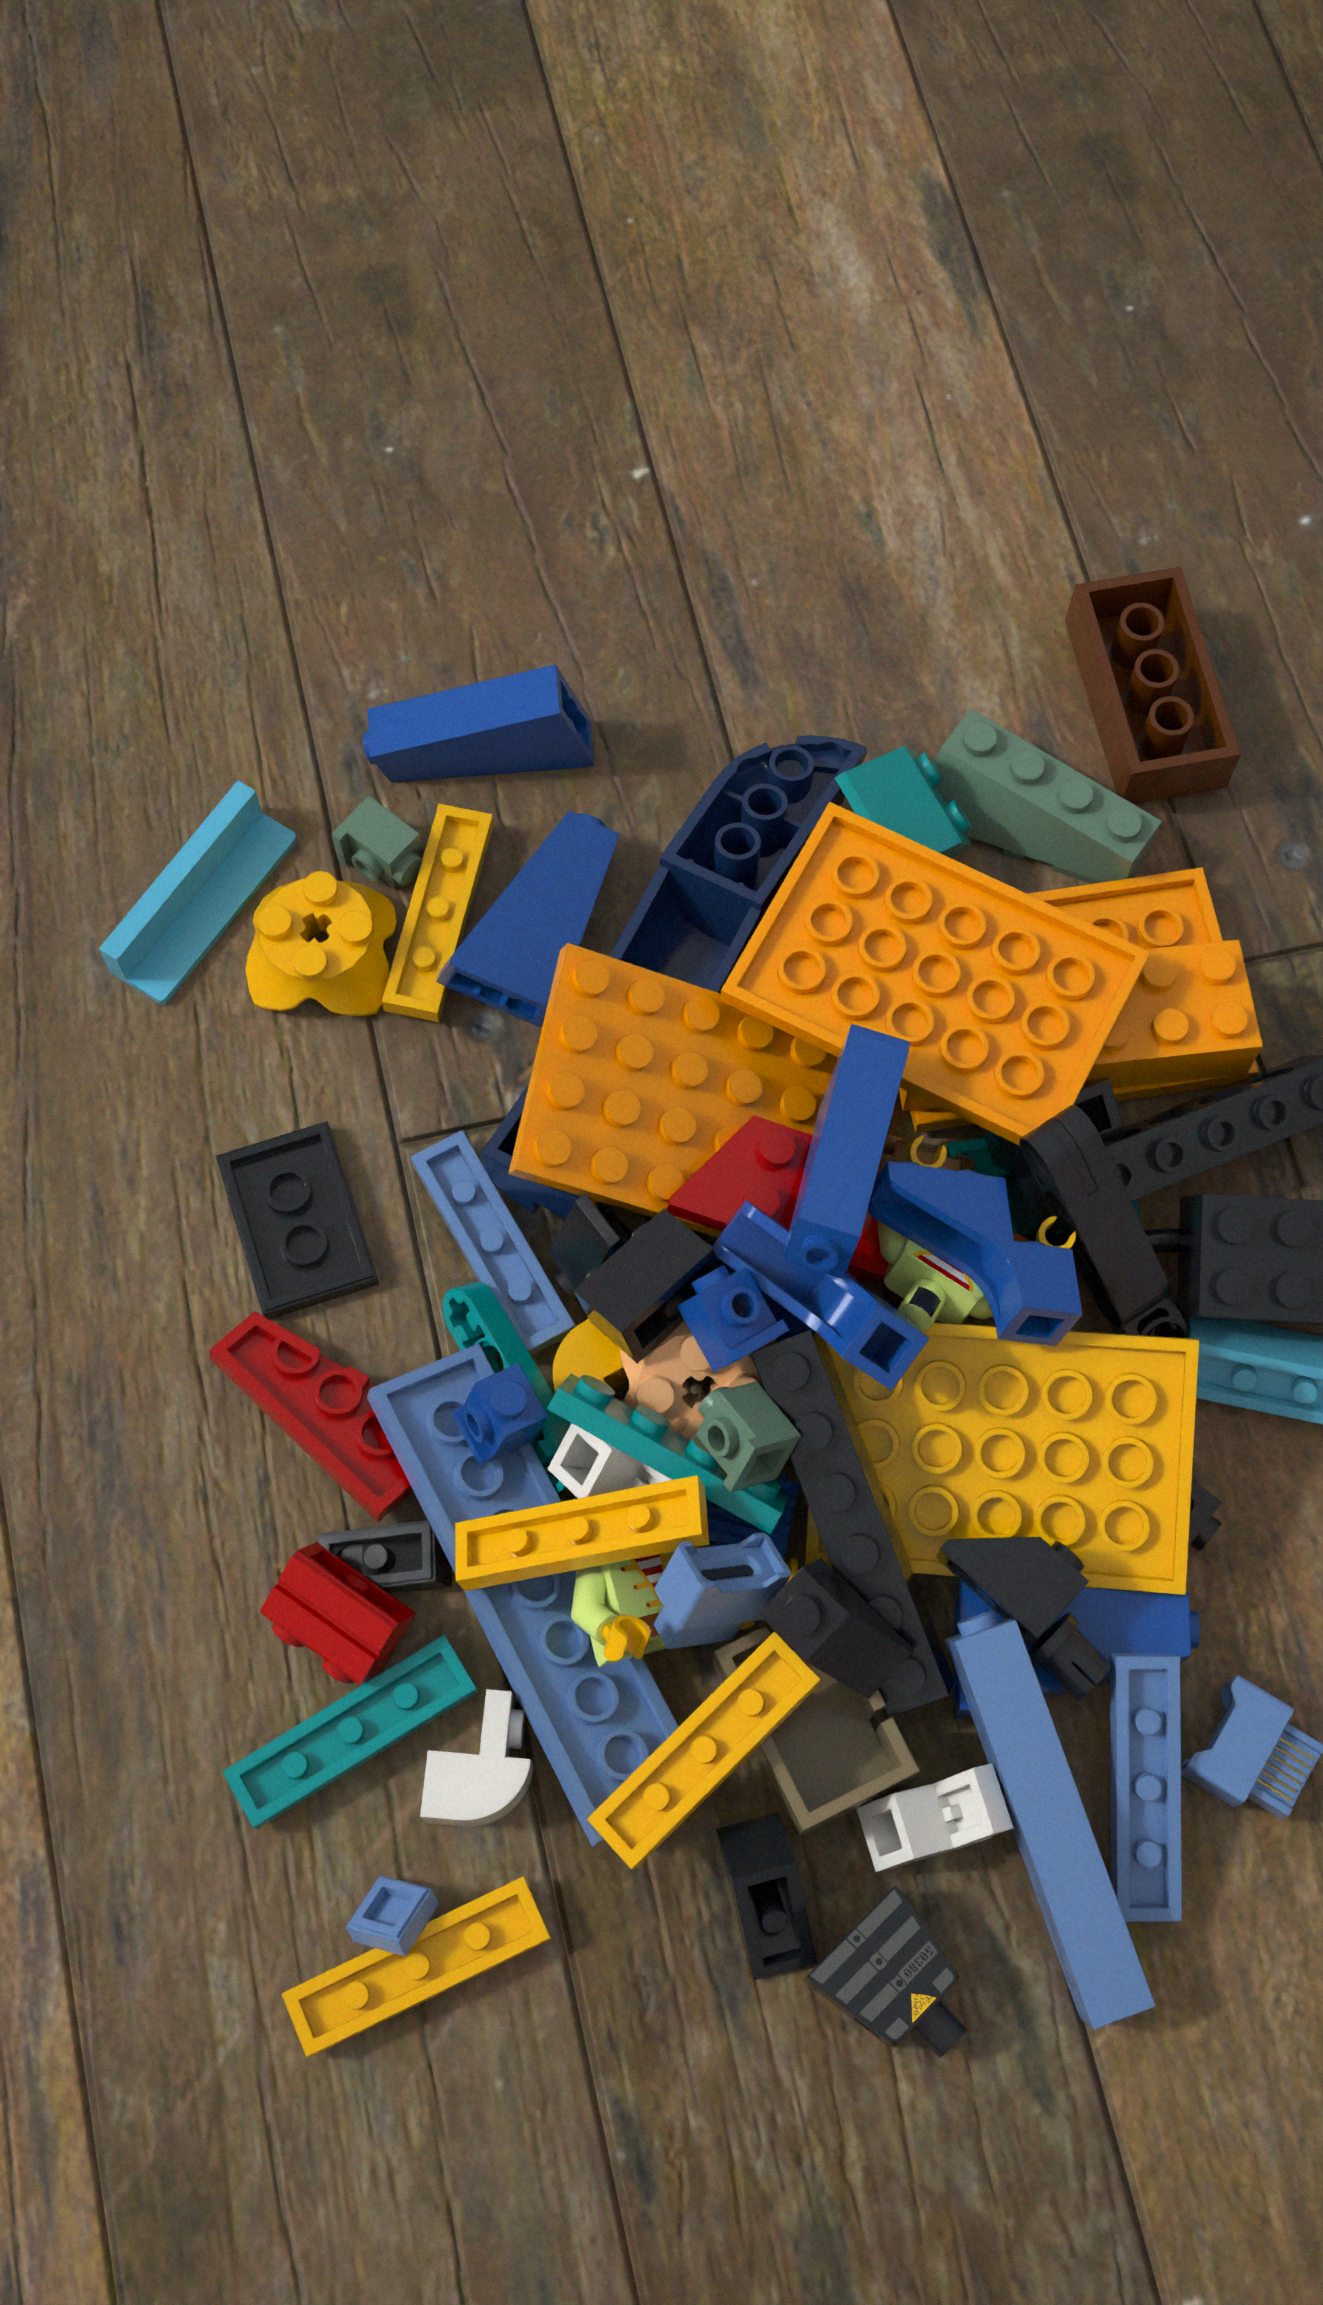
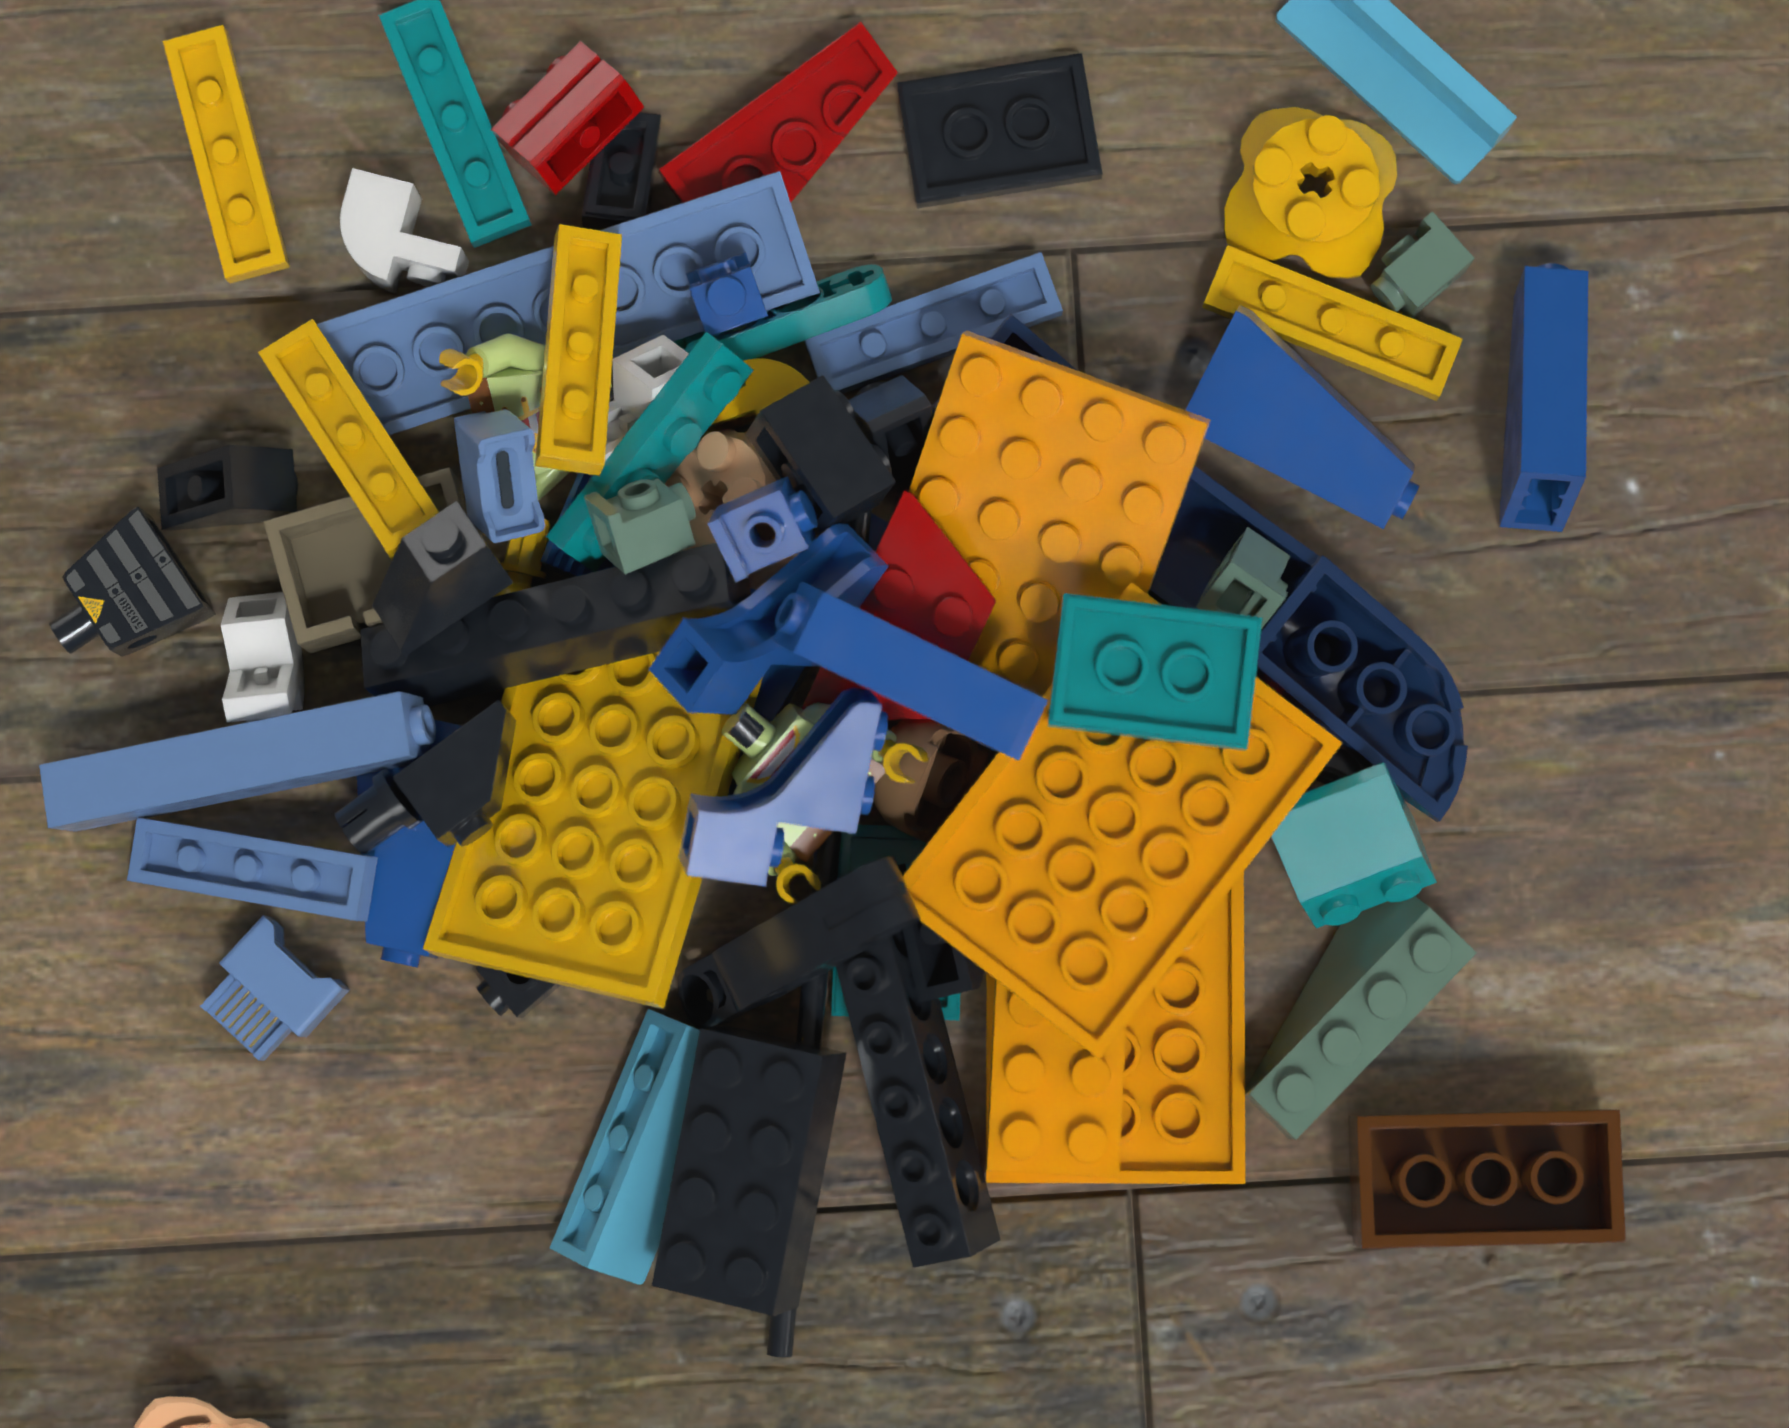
camera: 105 degrees right, 15 degrees up
(392, 1915) = (273, 135): medium blue tile -> none
(697, 916) = (1248, 579): none -> sand green brick
(800, 954) = (1155, 672): none -> teal tile

